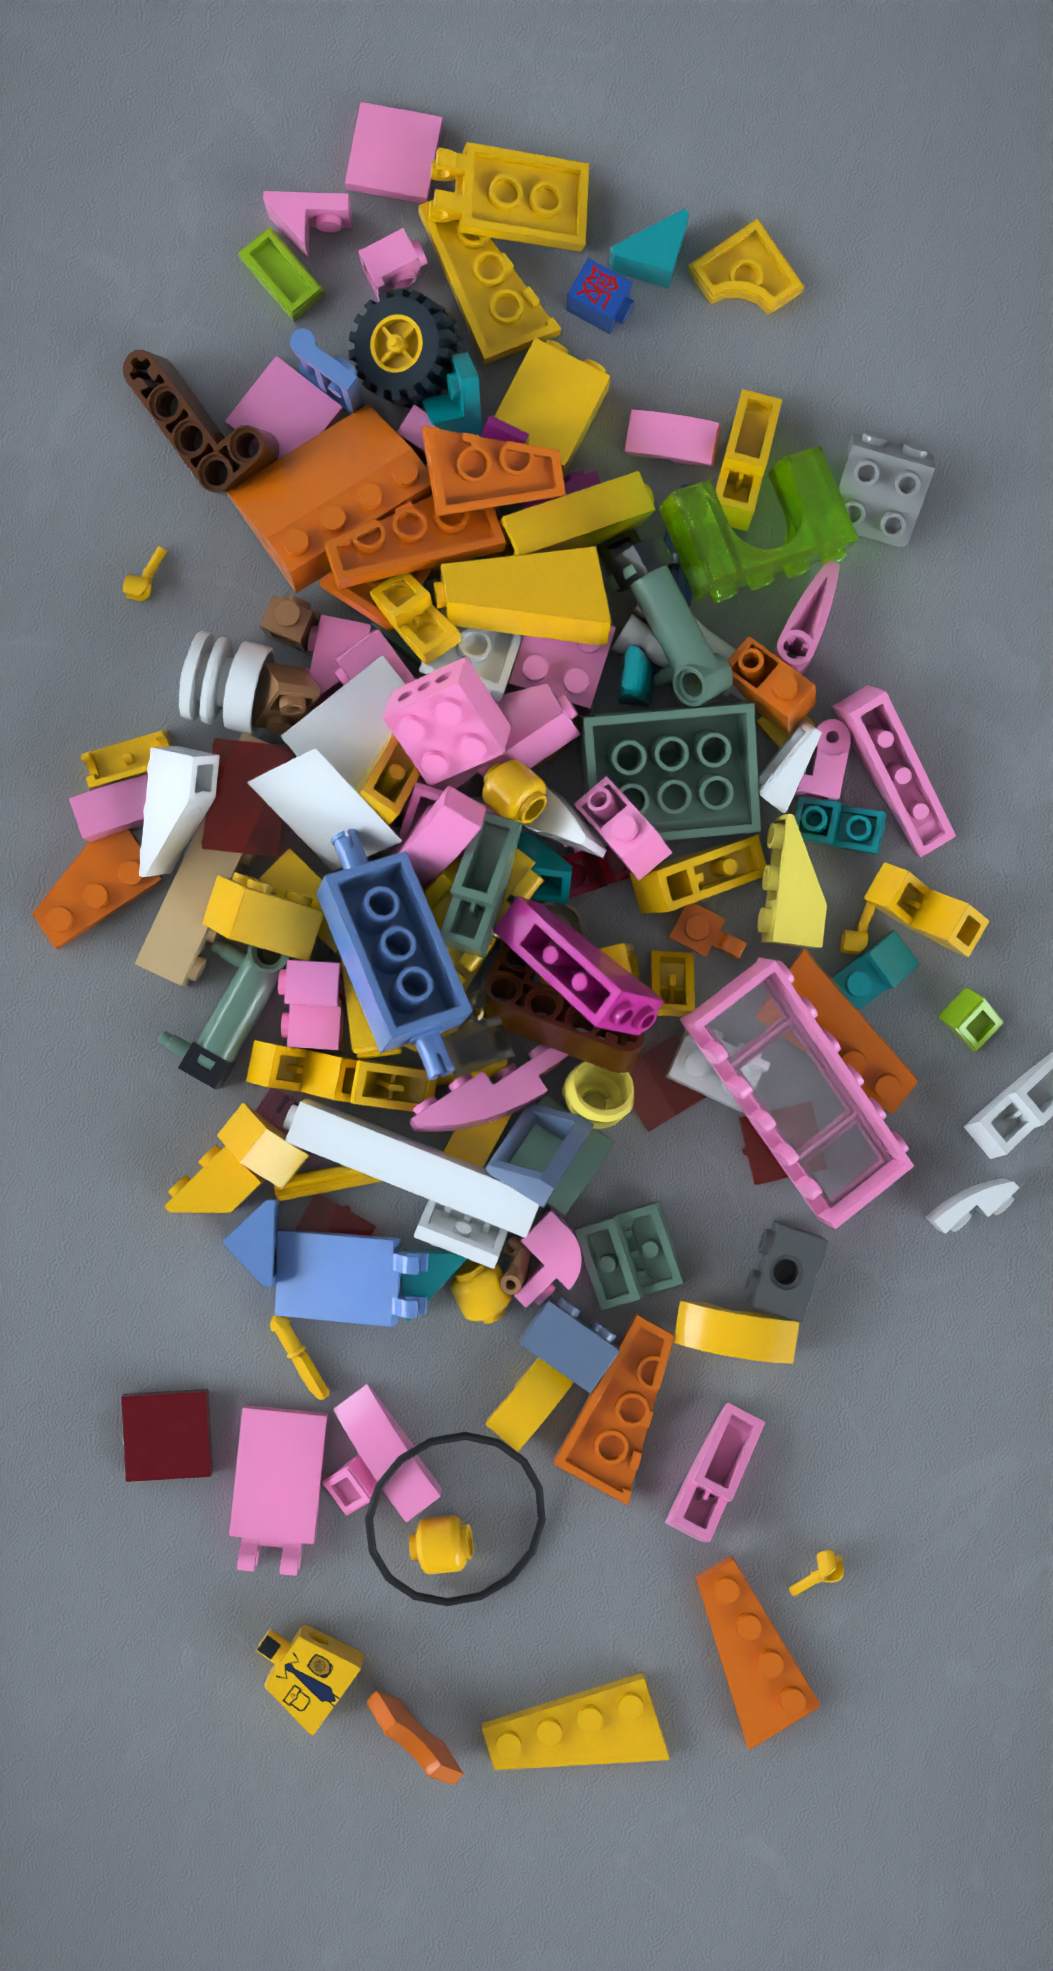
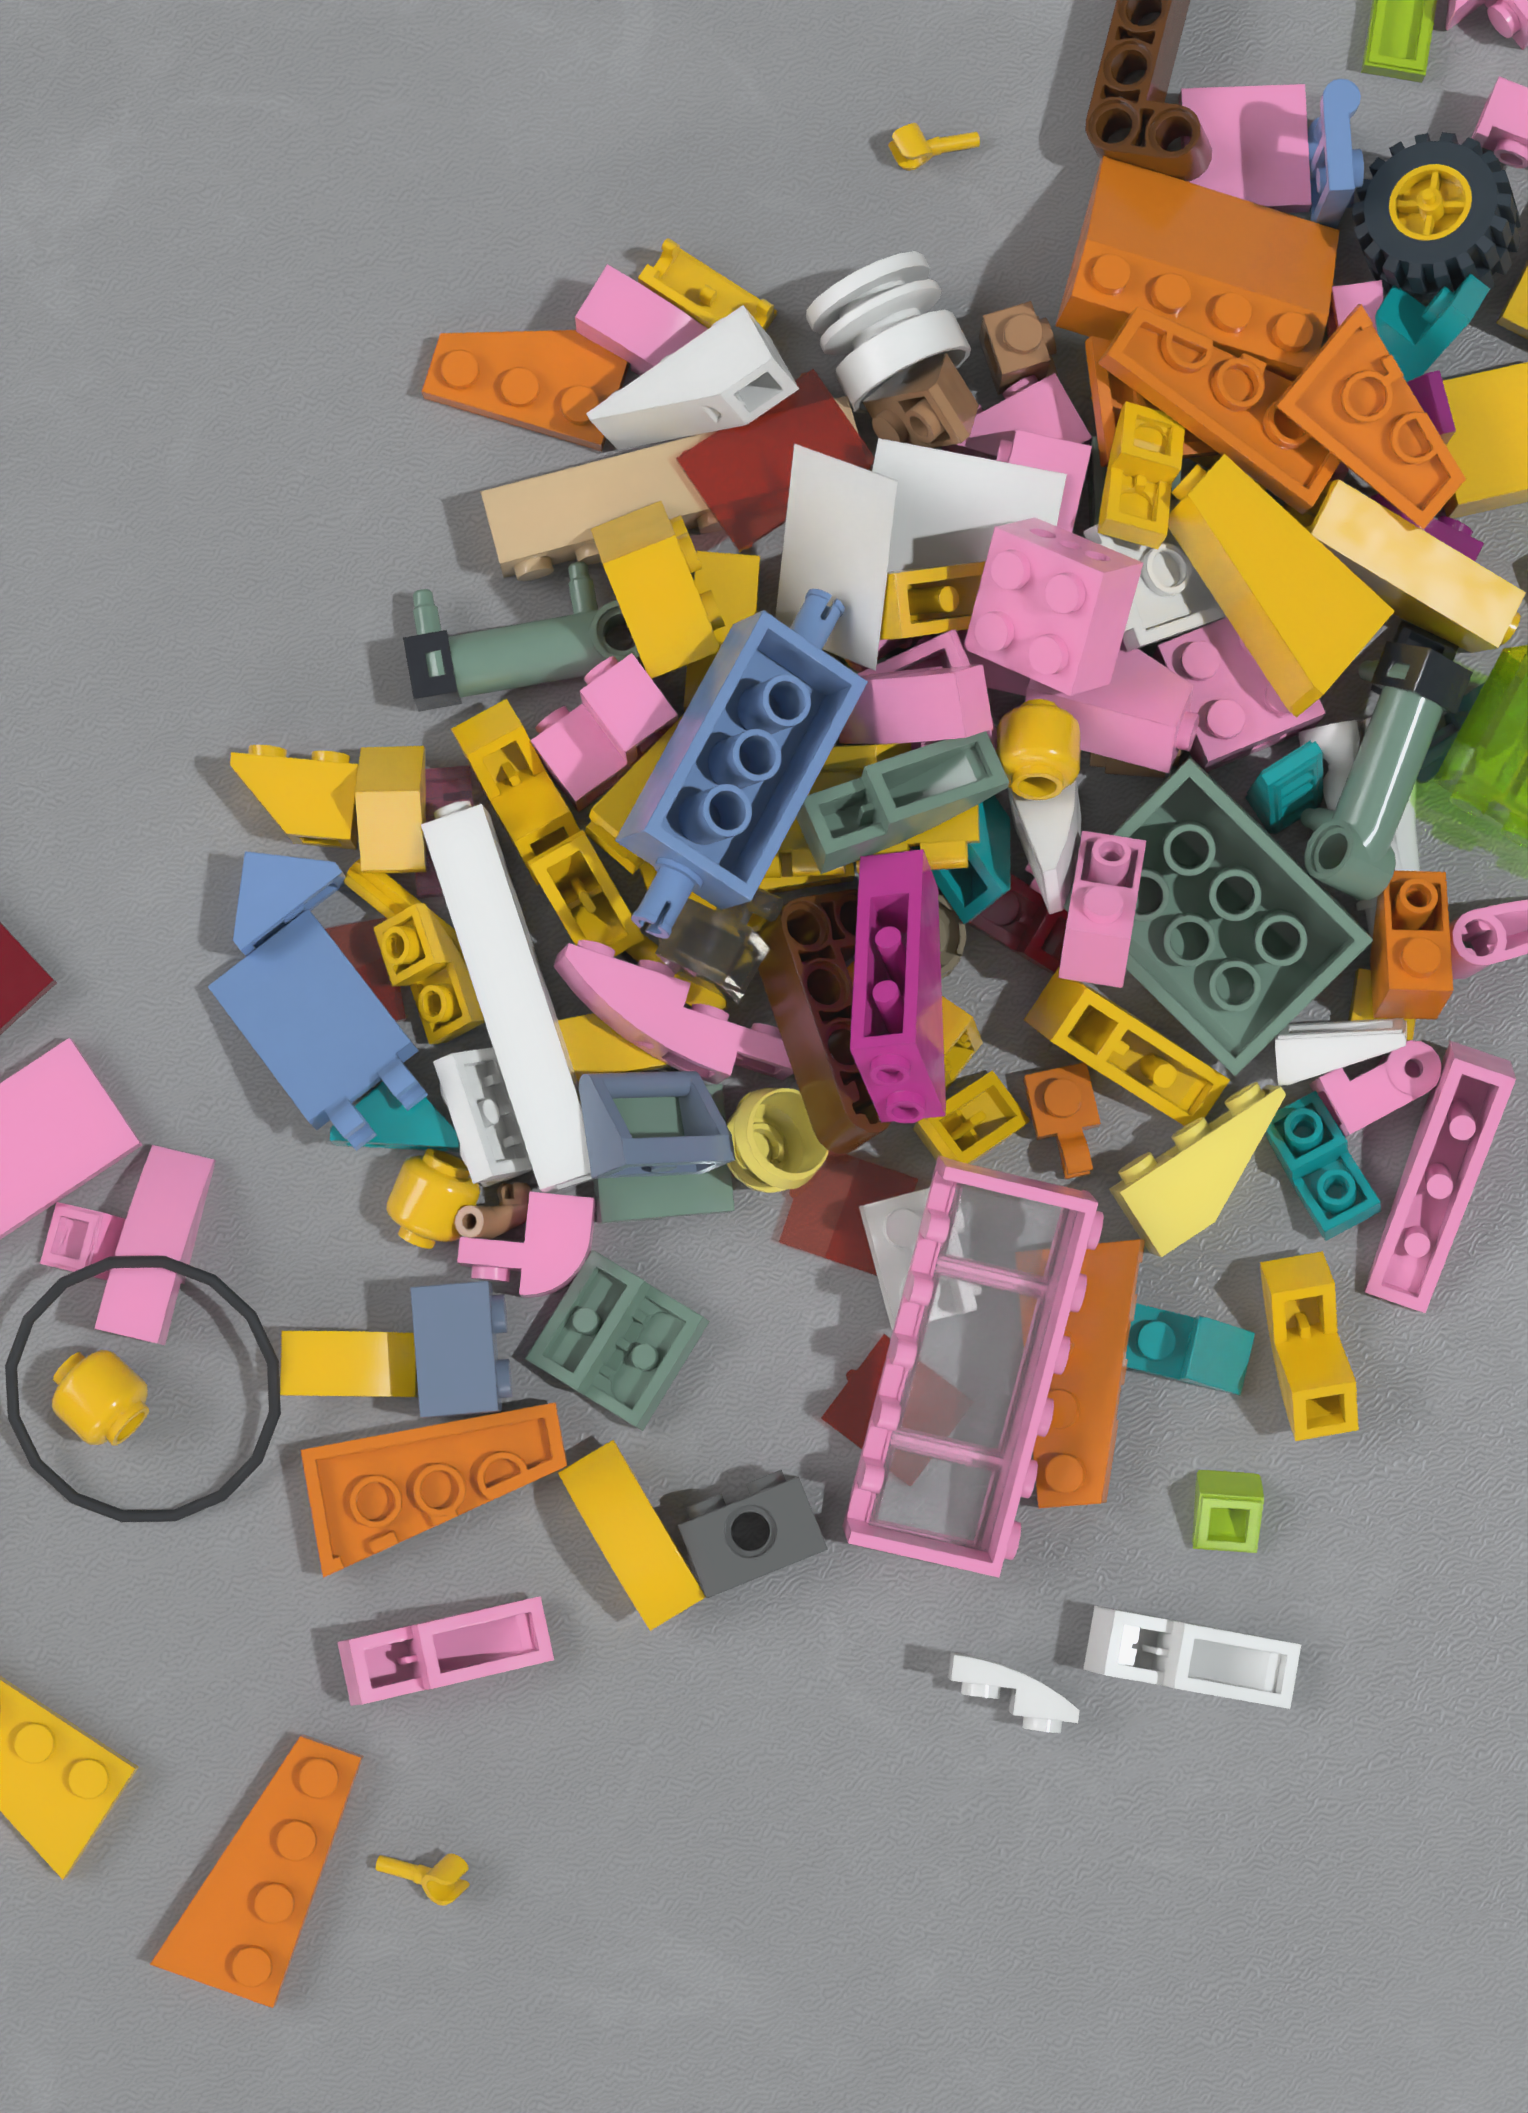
camera: 50 degrees right, 5 degrees down
(299, 1357) = (181, 1056): yellow piece -> none
(353, 1192) = (425, 957): none -> yellow slope
(855, 941) = (1203, 1296): yellow hand -> none

